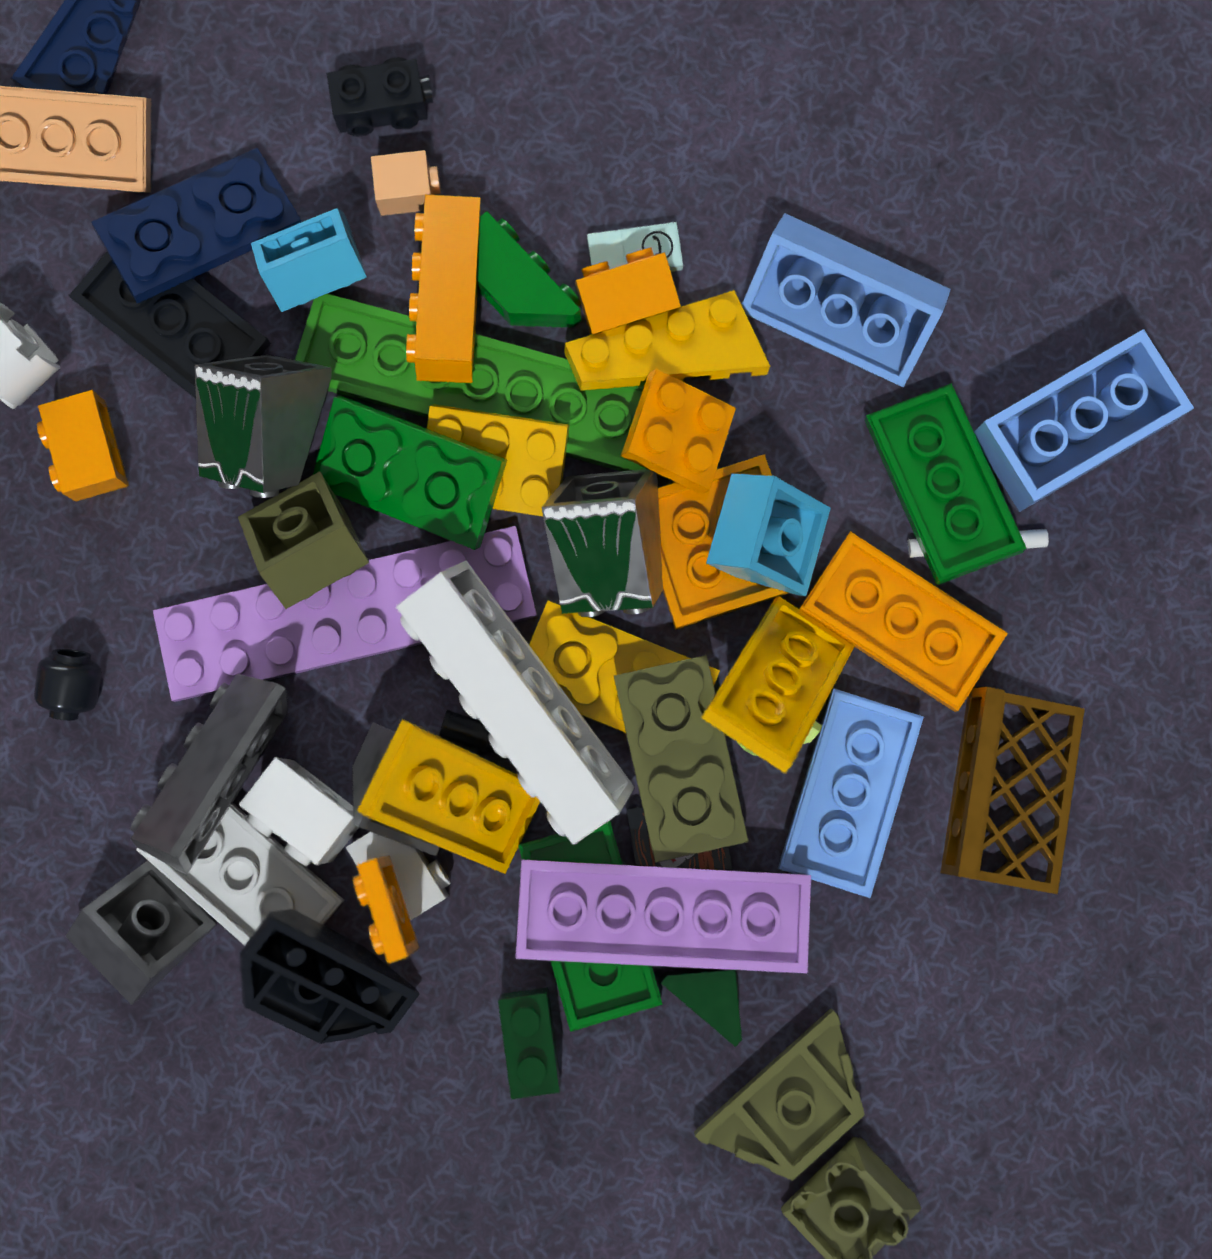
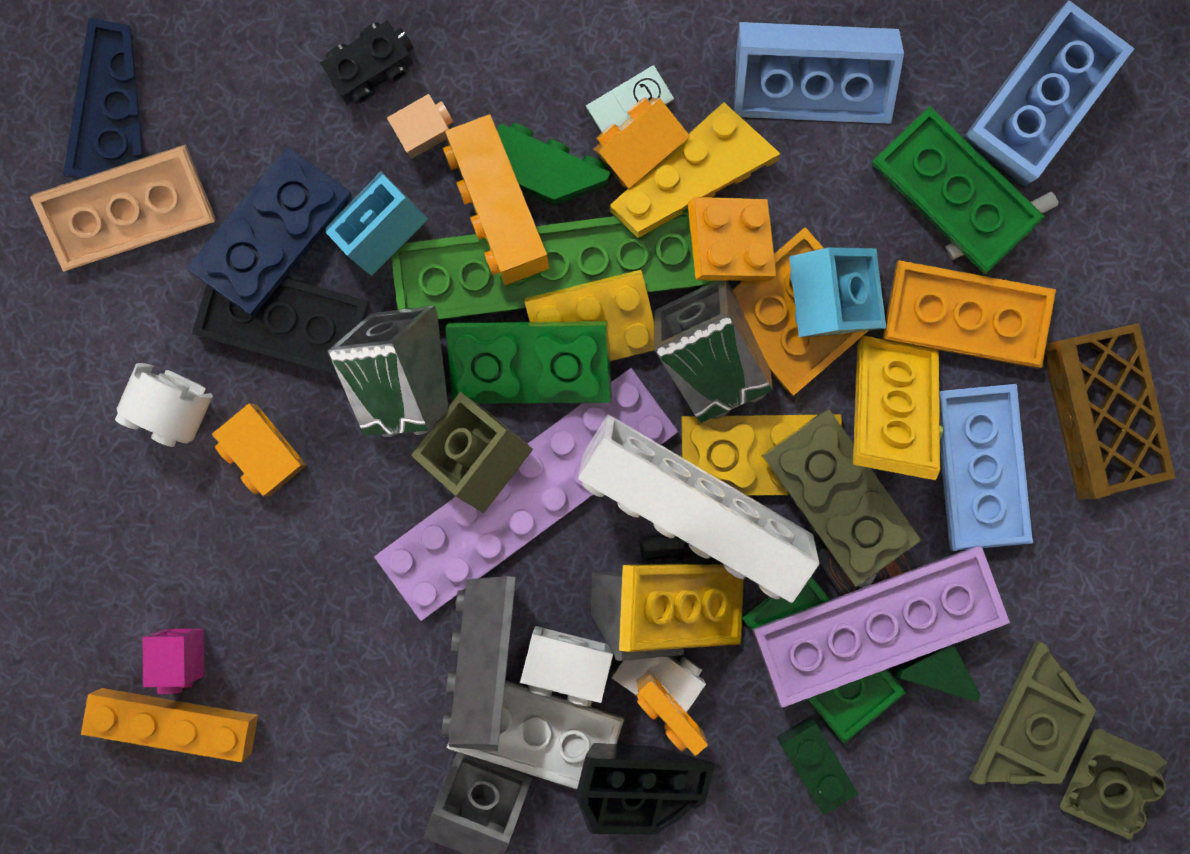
camera: 15 degrees left, 5 degrees up
(67, 684) = (334, 642): black head -> none

